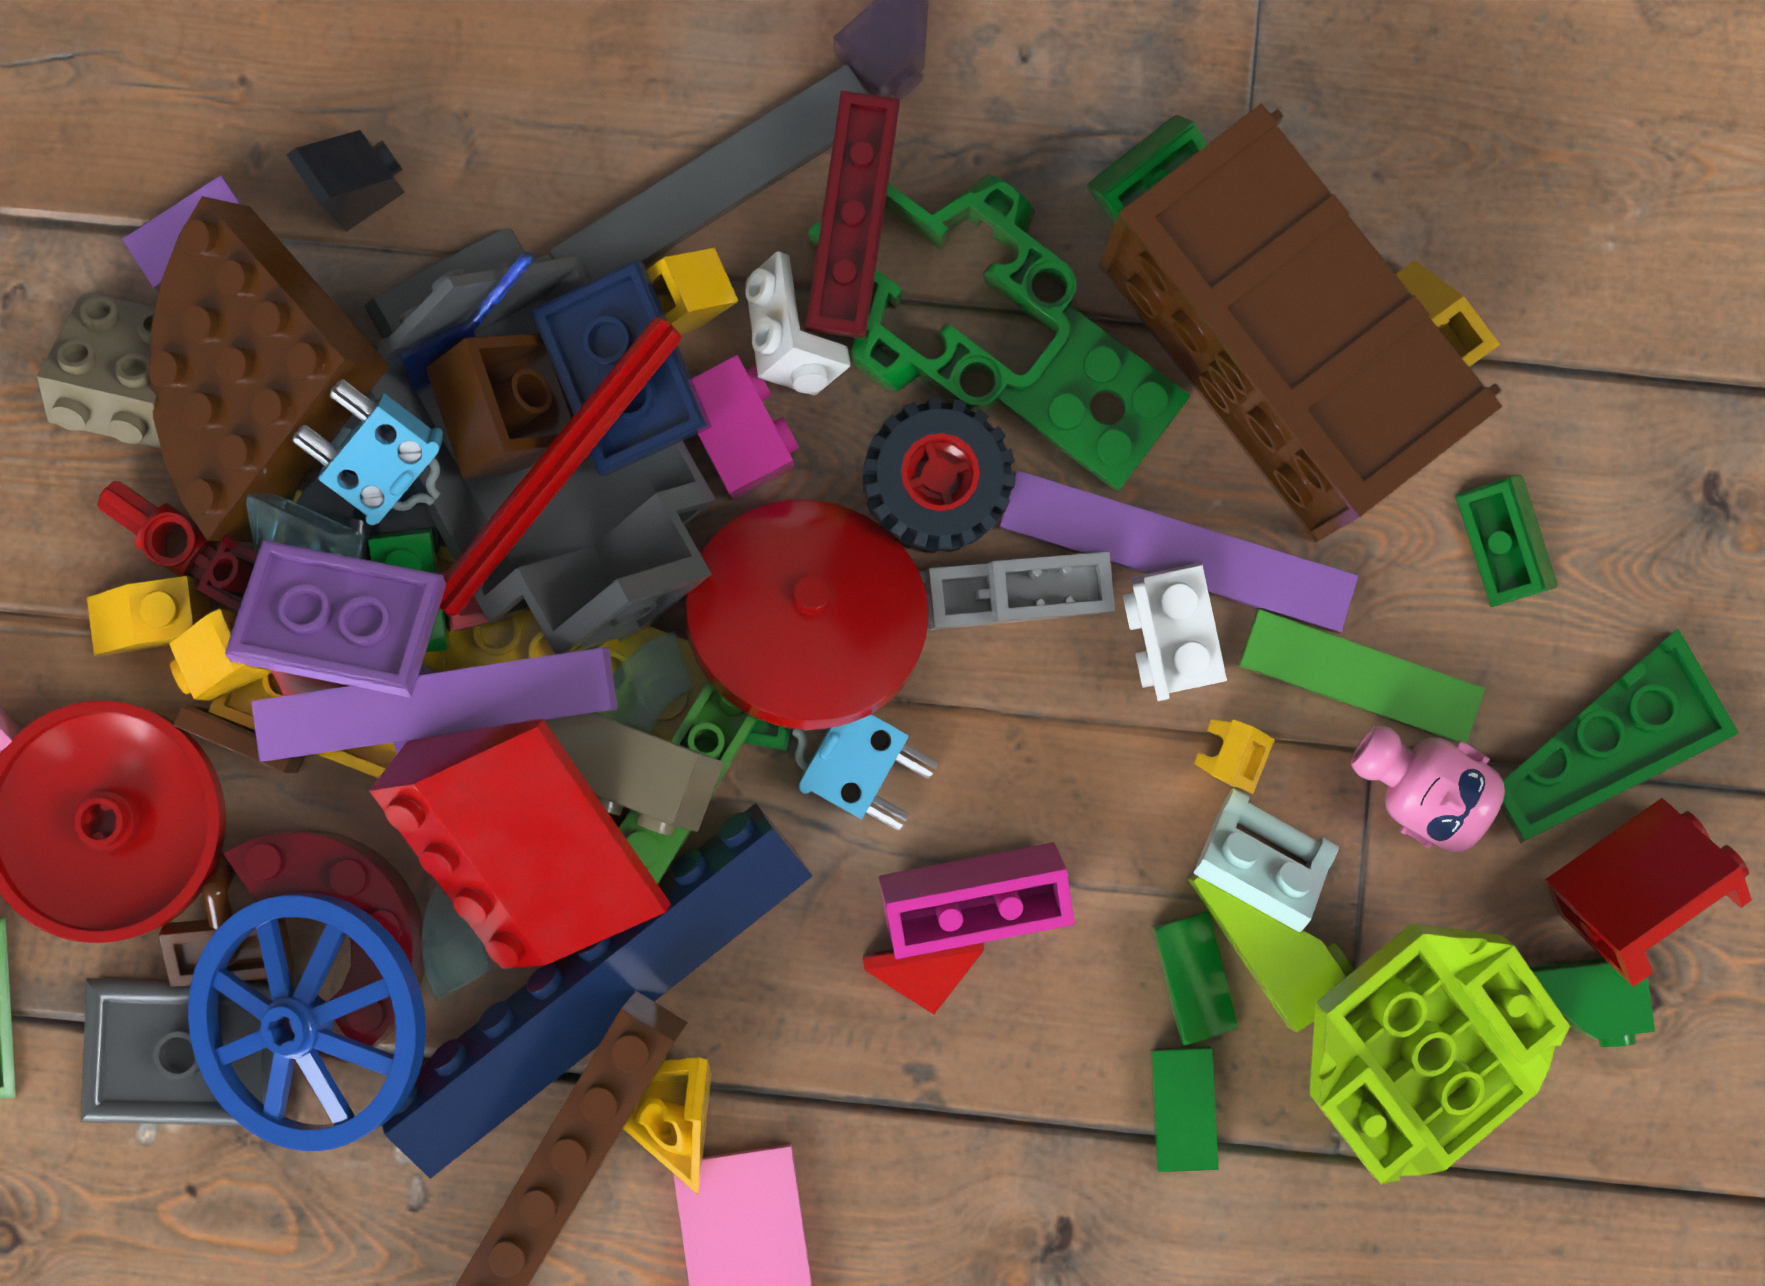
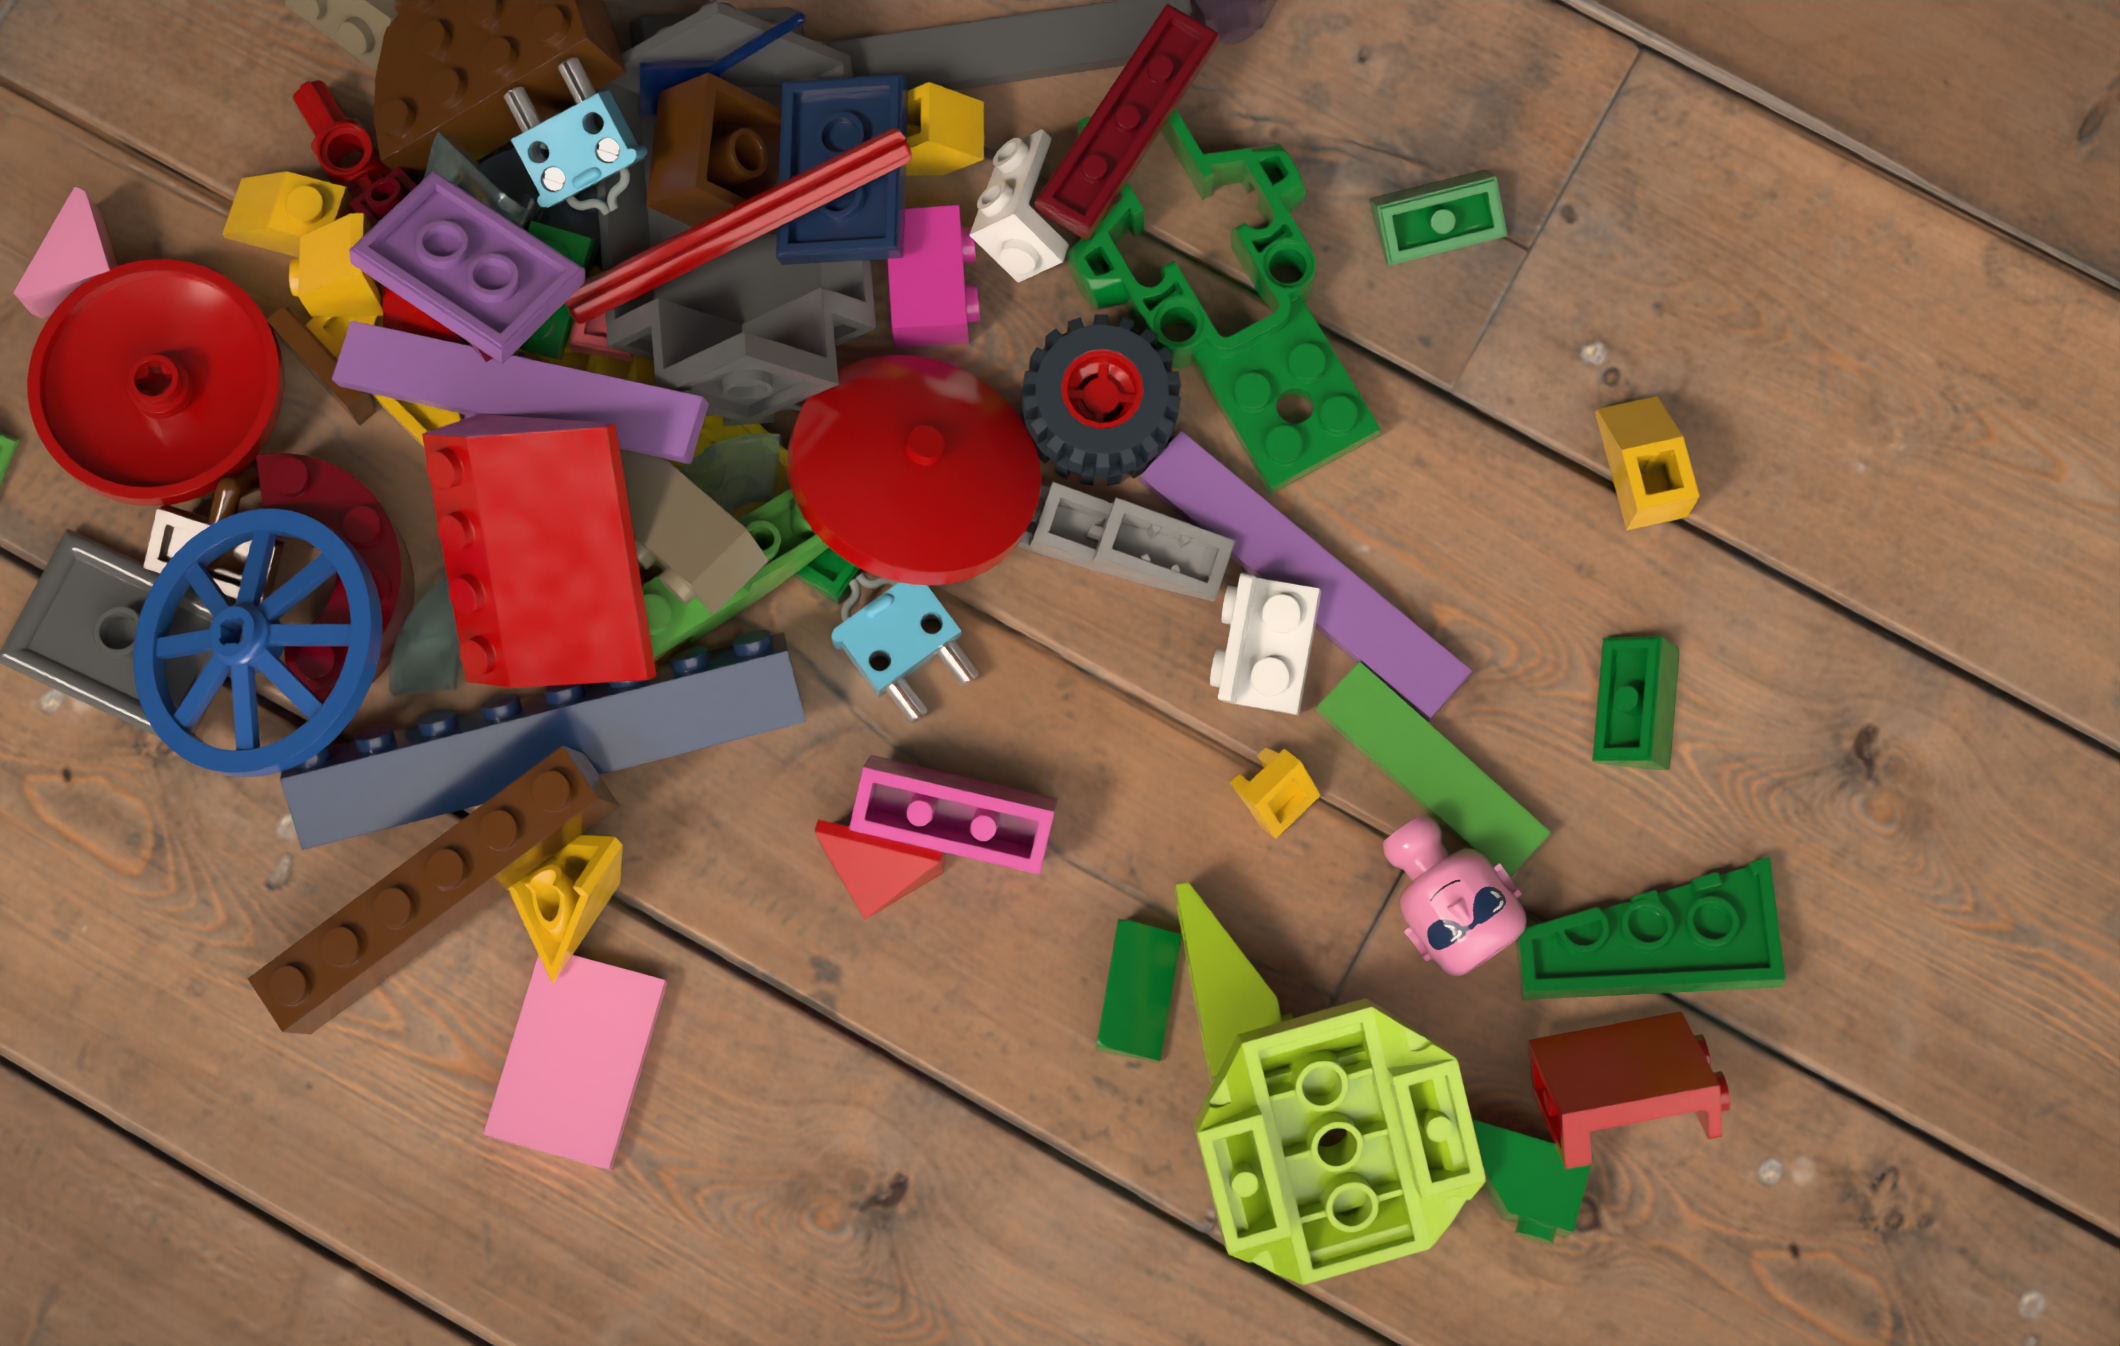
camera: 20 degrees right, 10 degrees down
(1184, 1109) = (1070, 1116): green tile -> none
(1260, 872) = (1247, 910): light aqua plate -> none
(1292, 325) = (1496, 387): reddish brown container -> none

